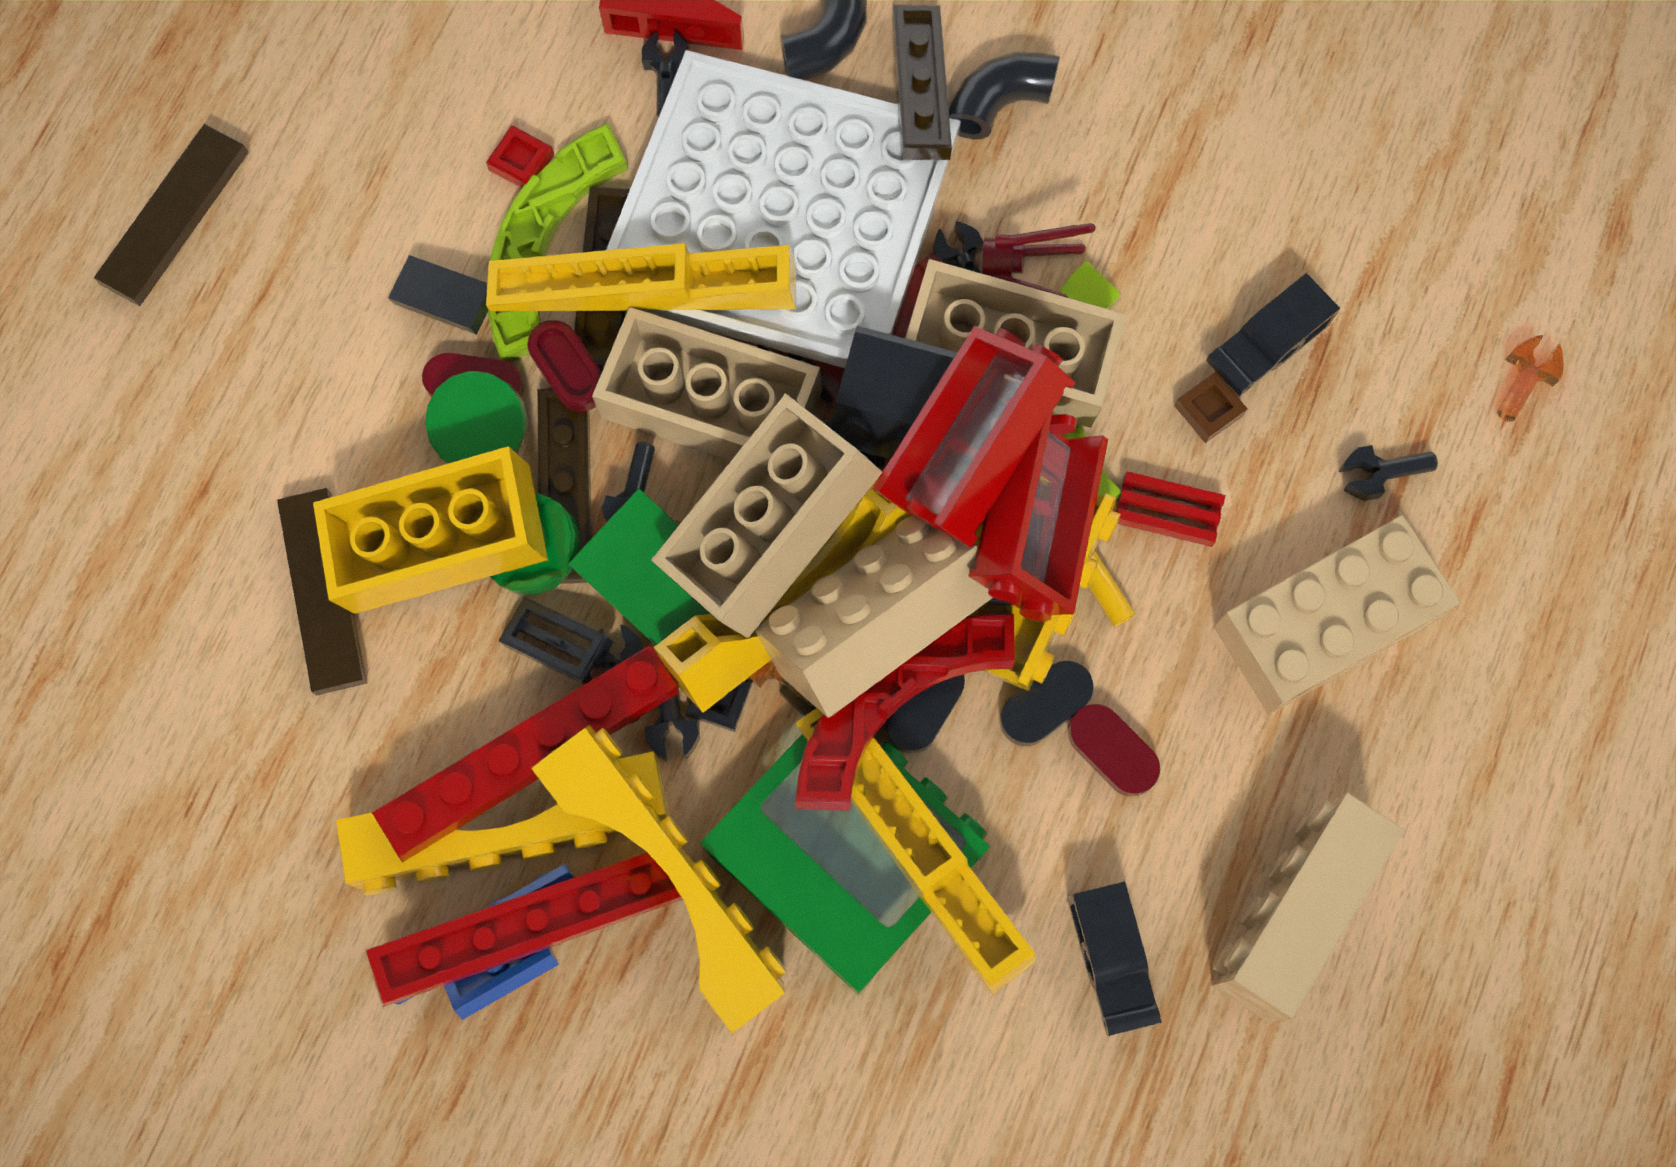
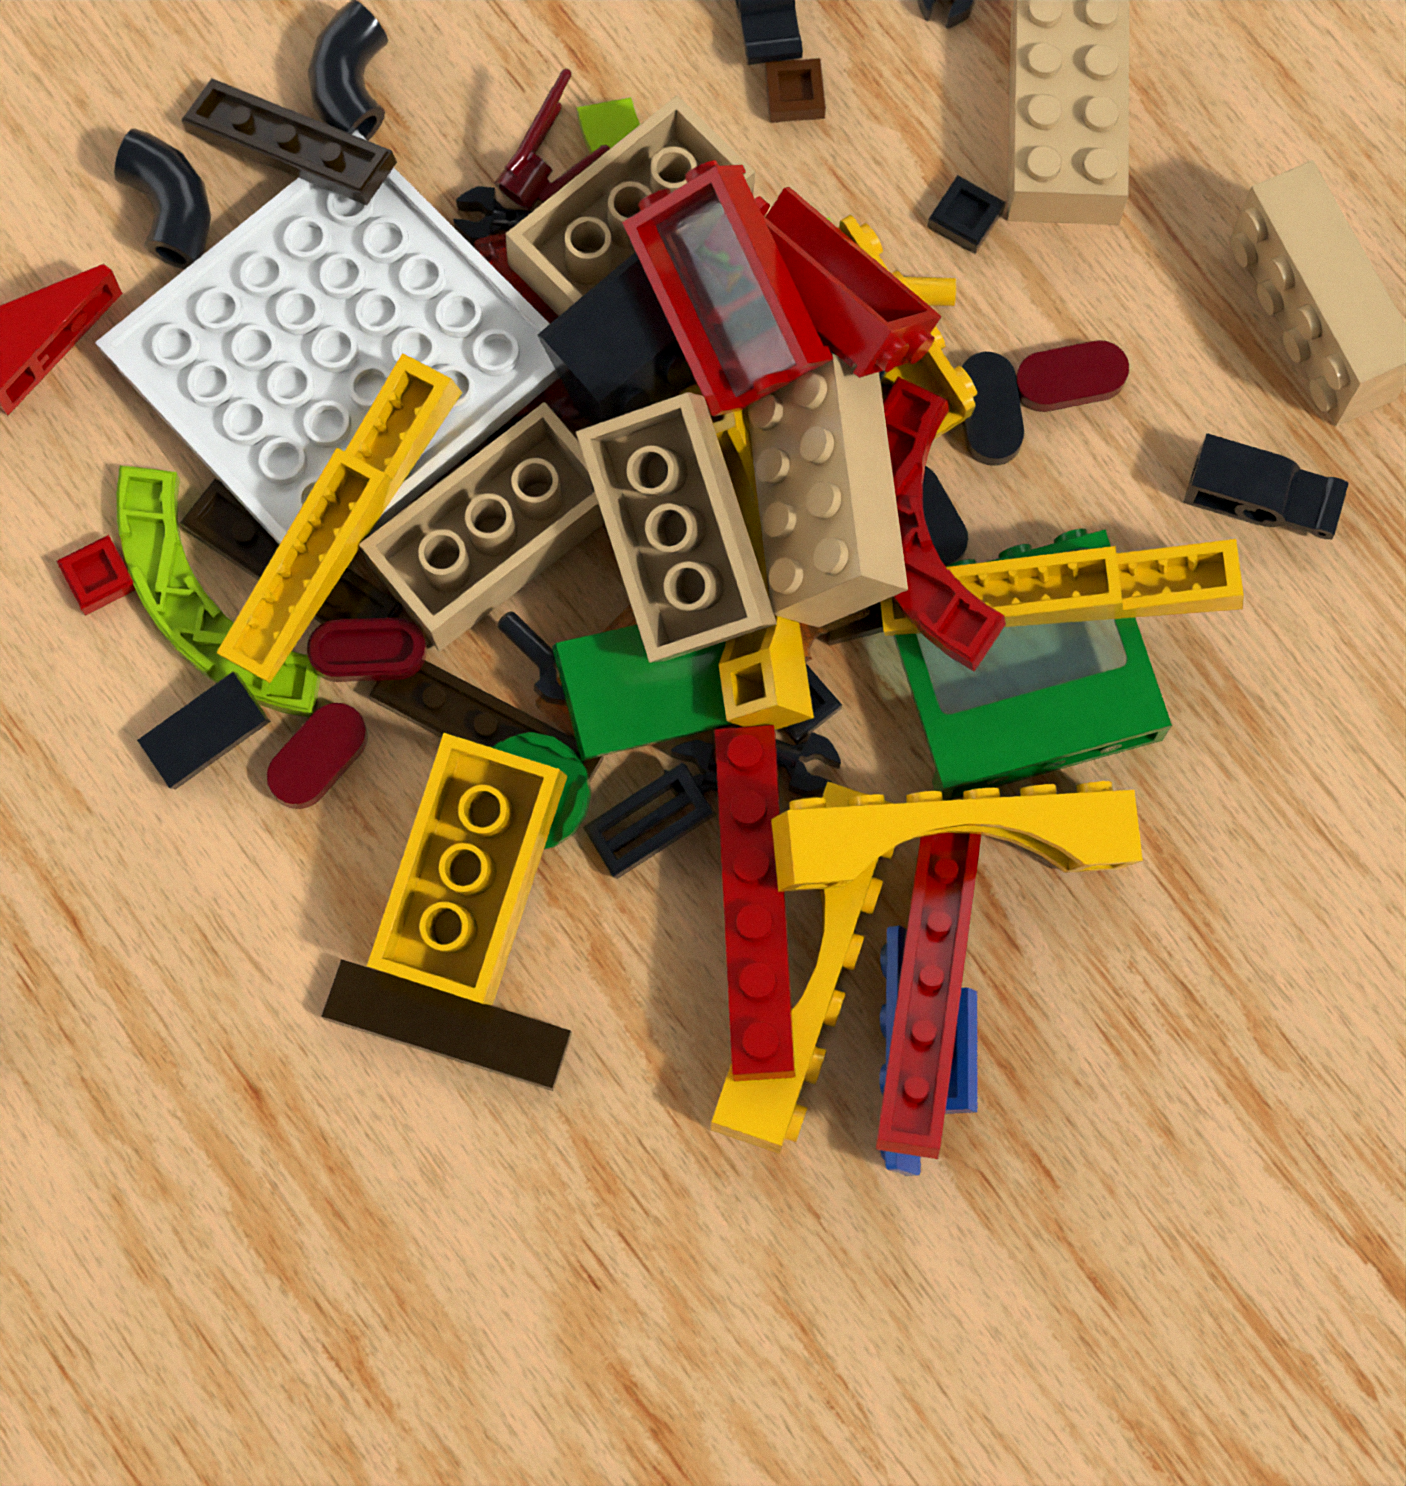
camera: 60 degrees left, 0 degrees up
(475, 416) = (368, 771): green tile -> none
(665, 70) = (97, 378): black bar -> none
(1174, 491) = (865, 164): red tile -> none
(1195, 592) = (966, 214): none -> black tile

